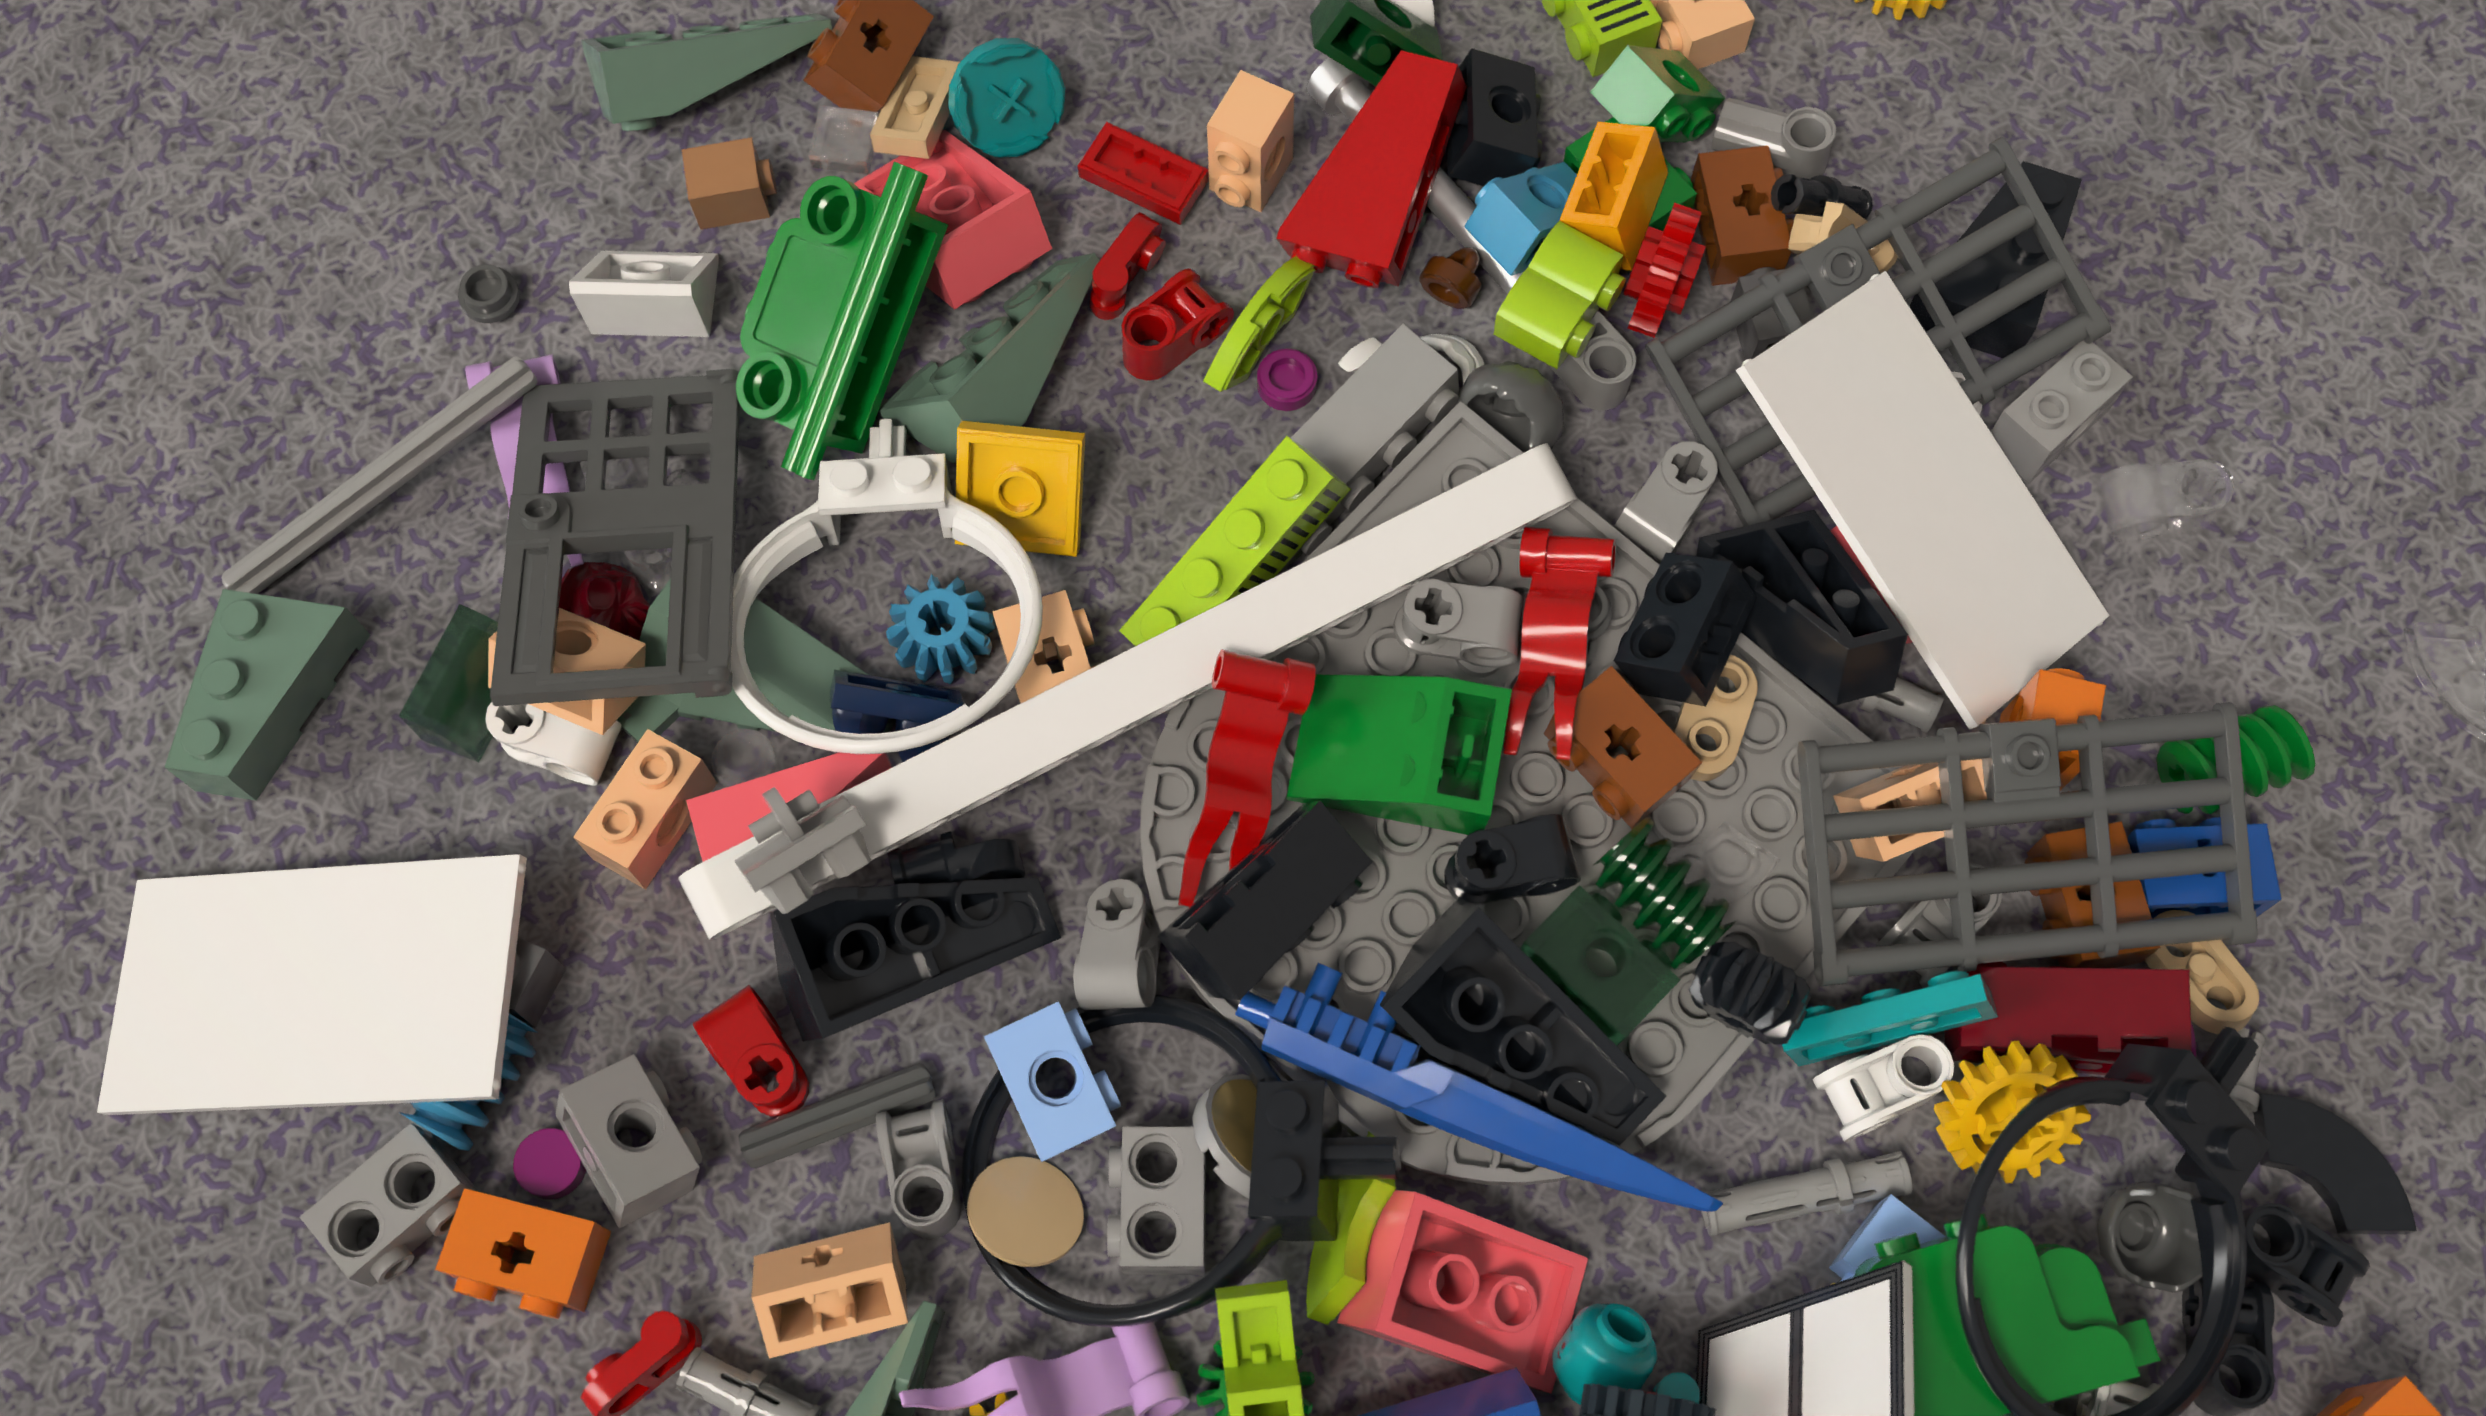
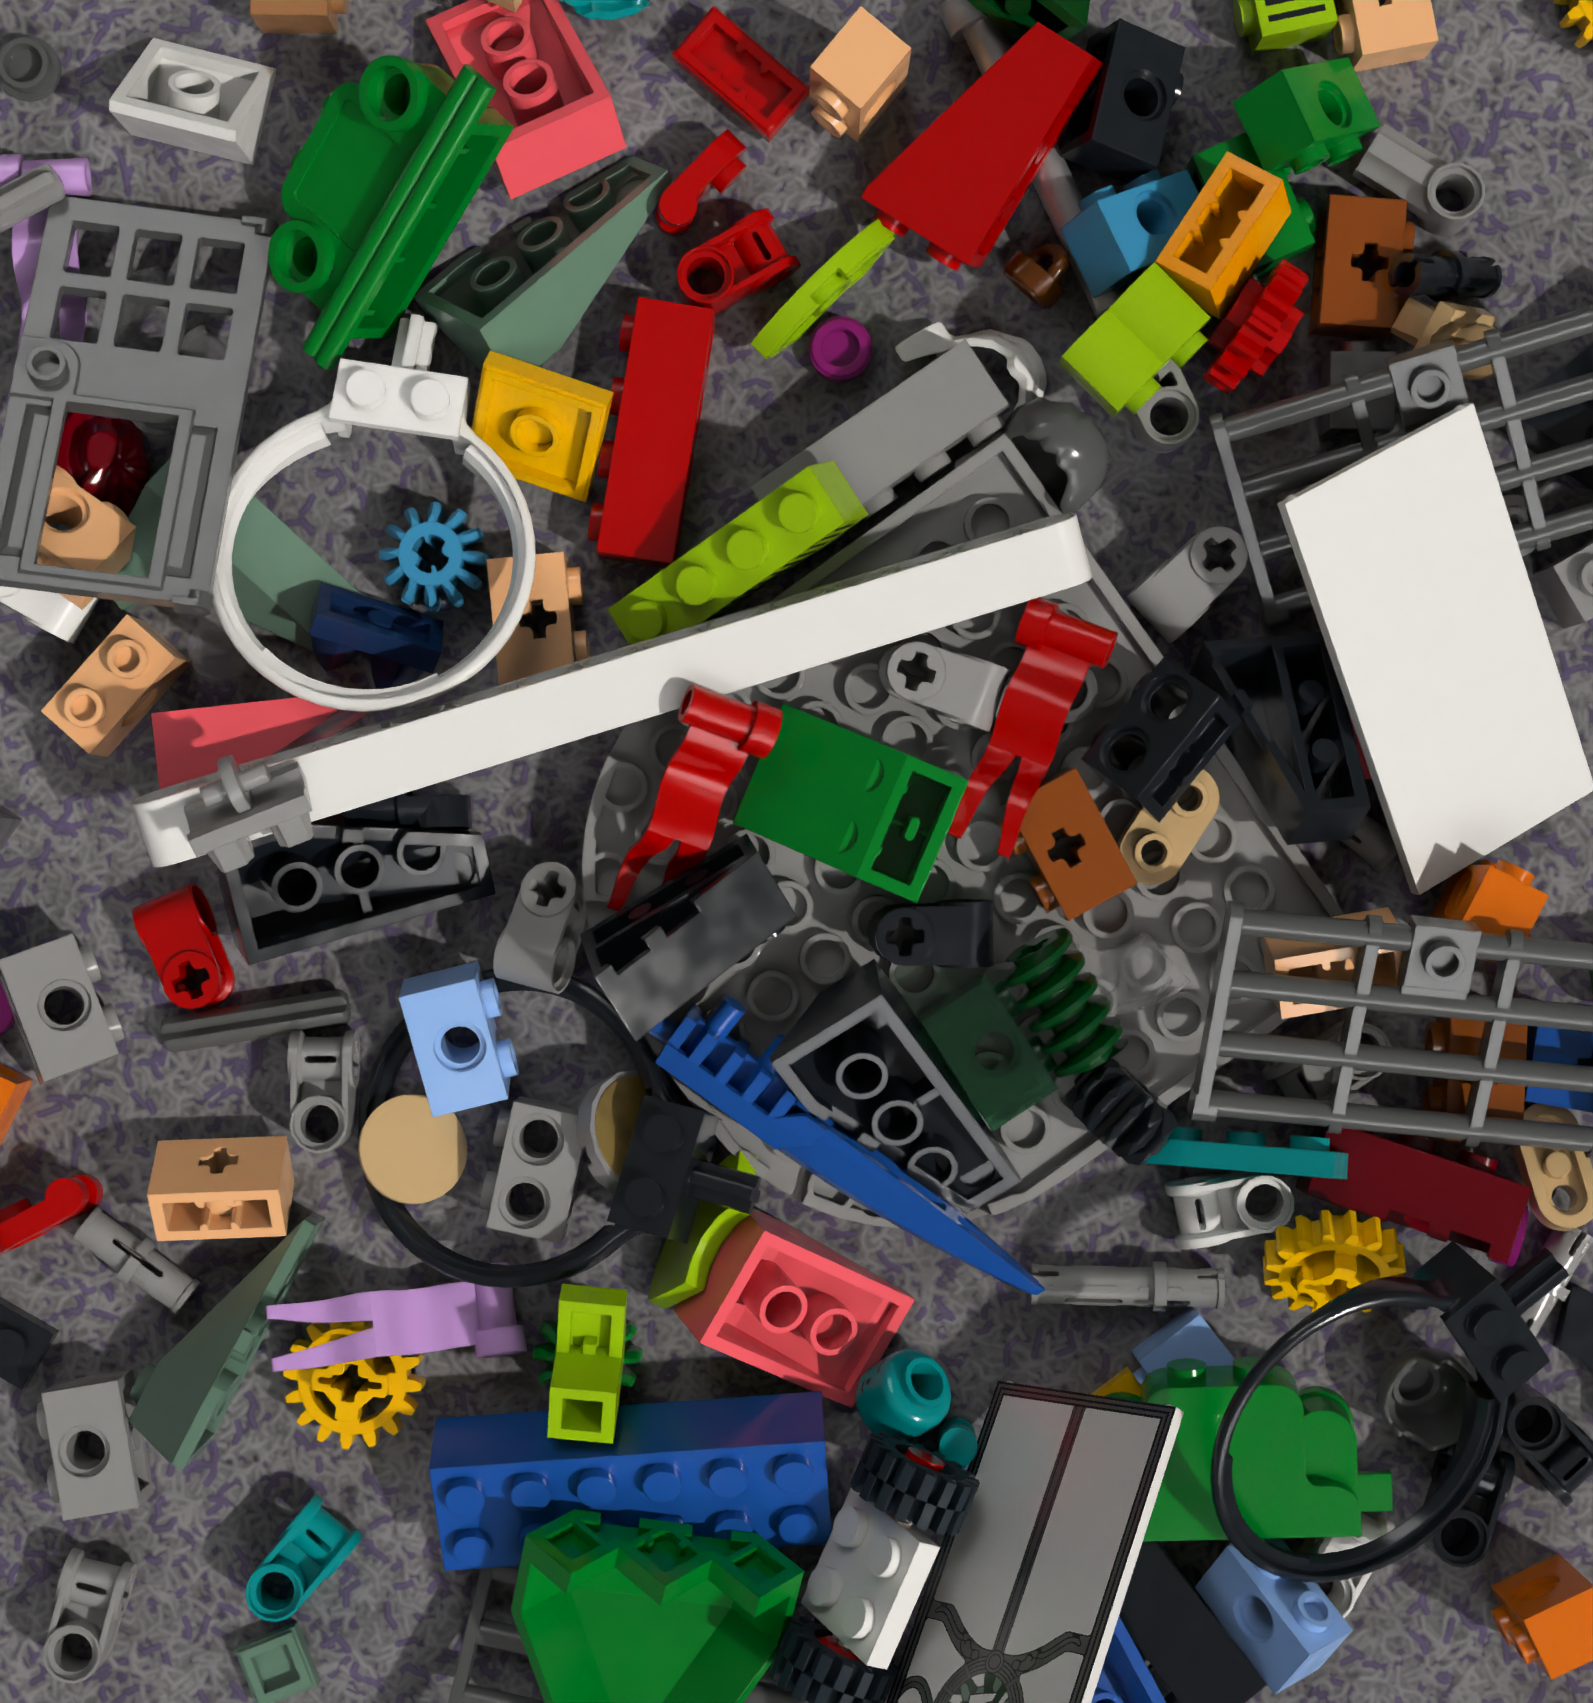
camera: 15 degrees right, 20 degrees up
(1130, 477) = (654, 434): none -> red brick

